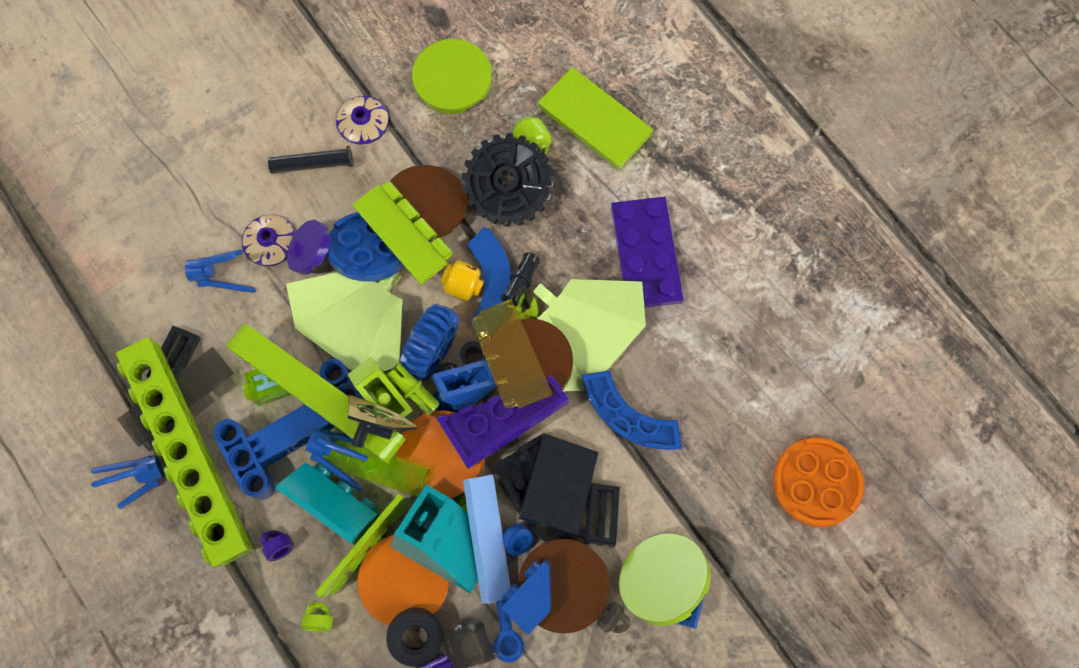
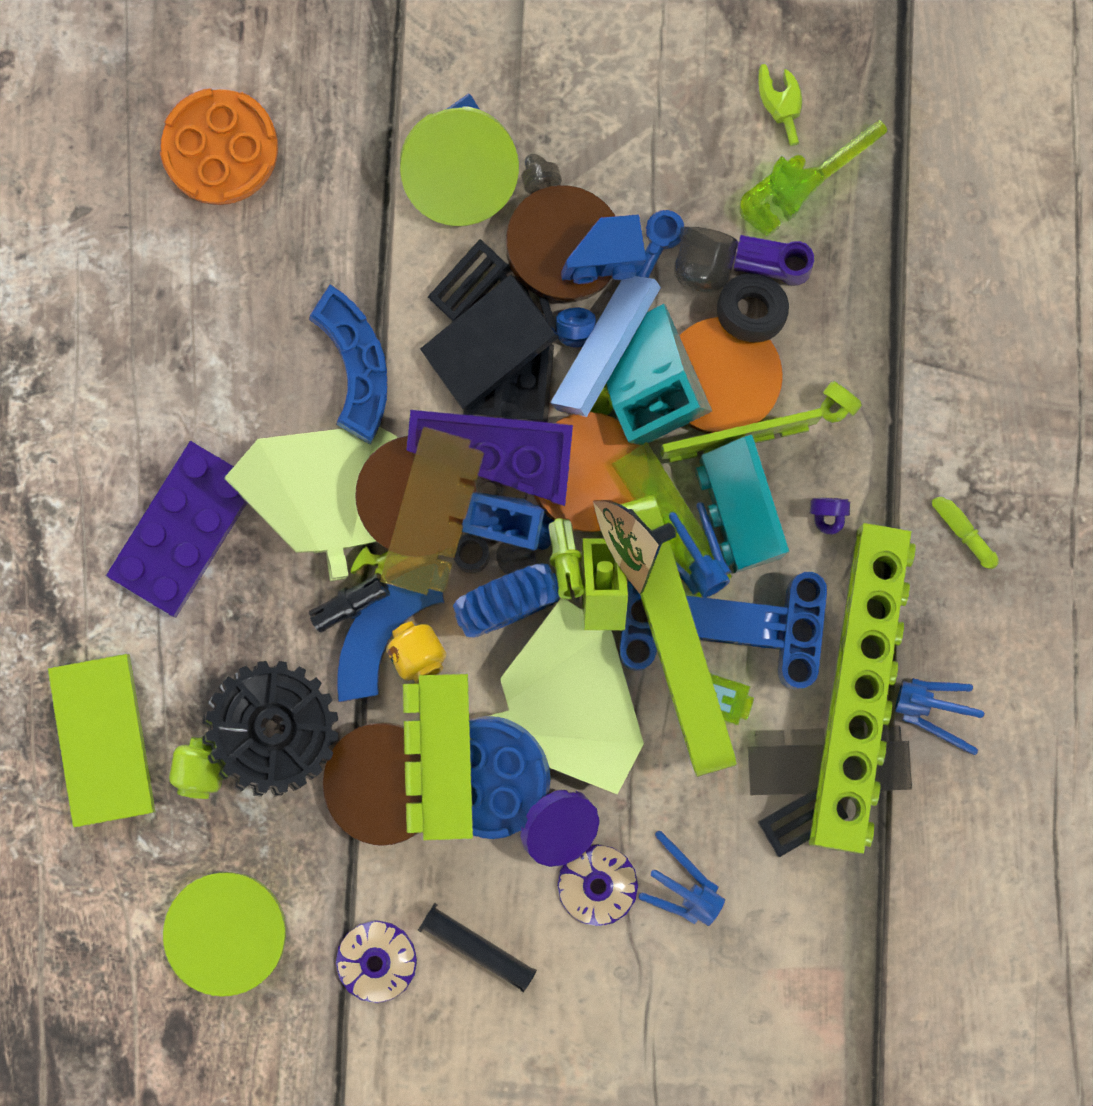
camera: 140 degrees left, 10 degrees up
(182, 599) = (964, 529): none -> lime piece

